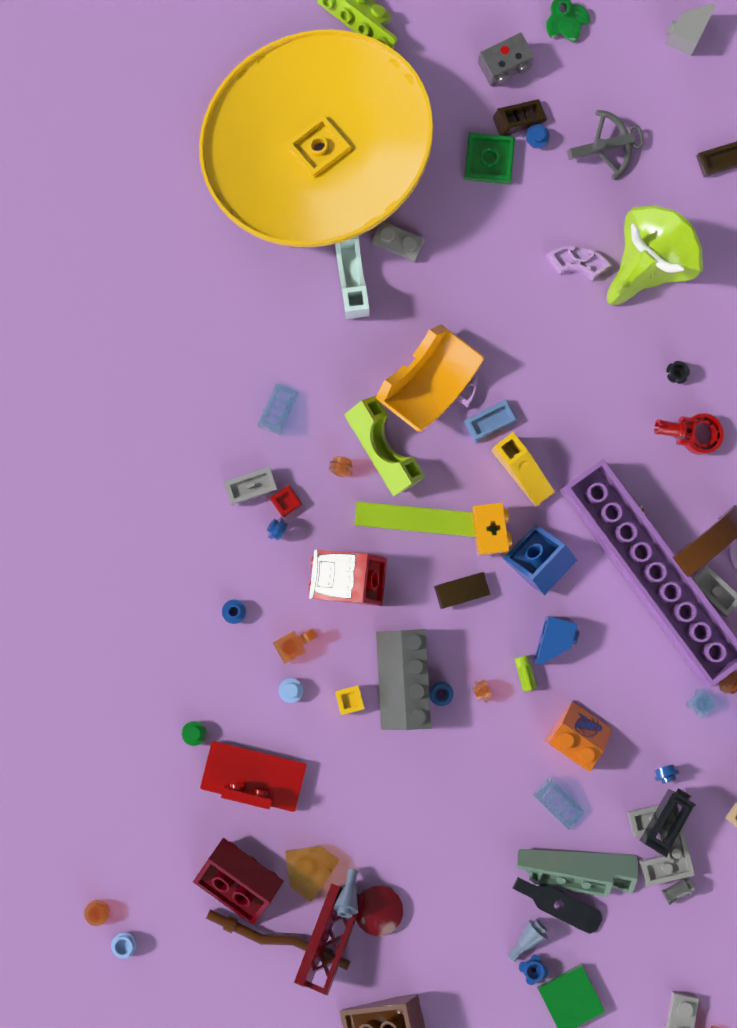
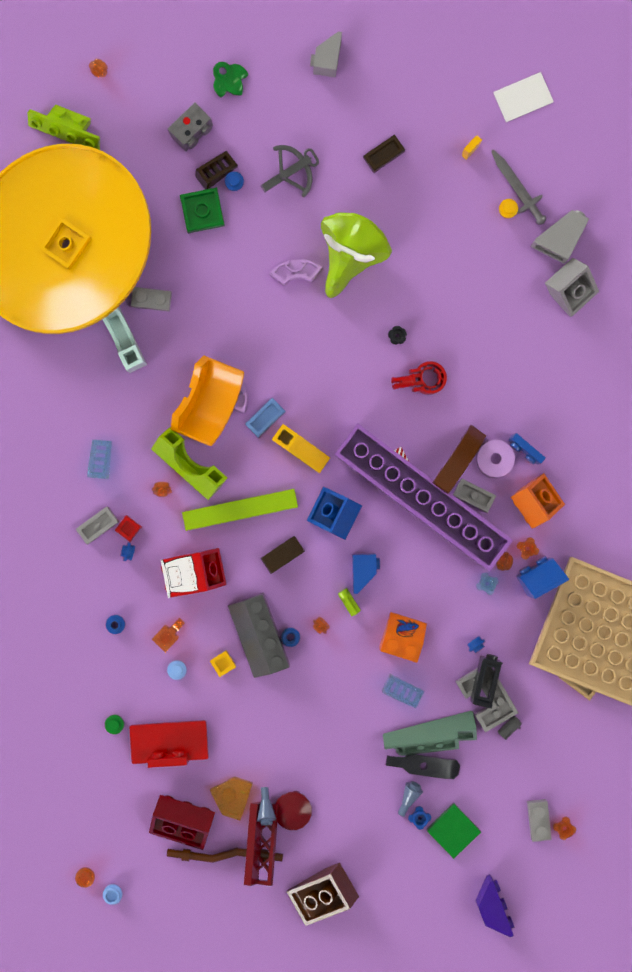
camera: 15 degrees left, 5 degrees up
(482, 518) = (280, 496): light orange brick -> none

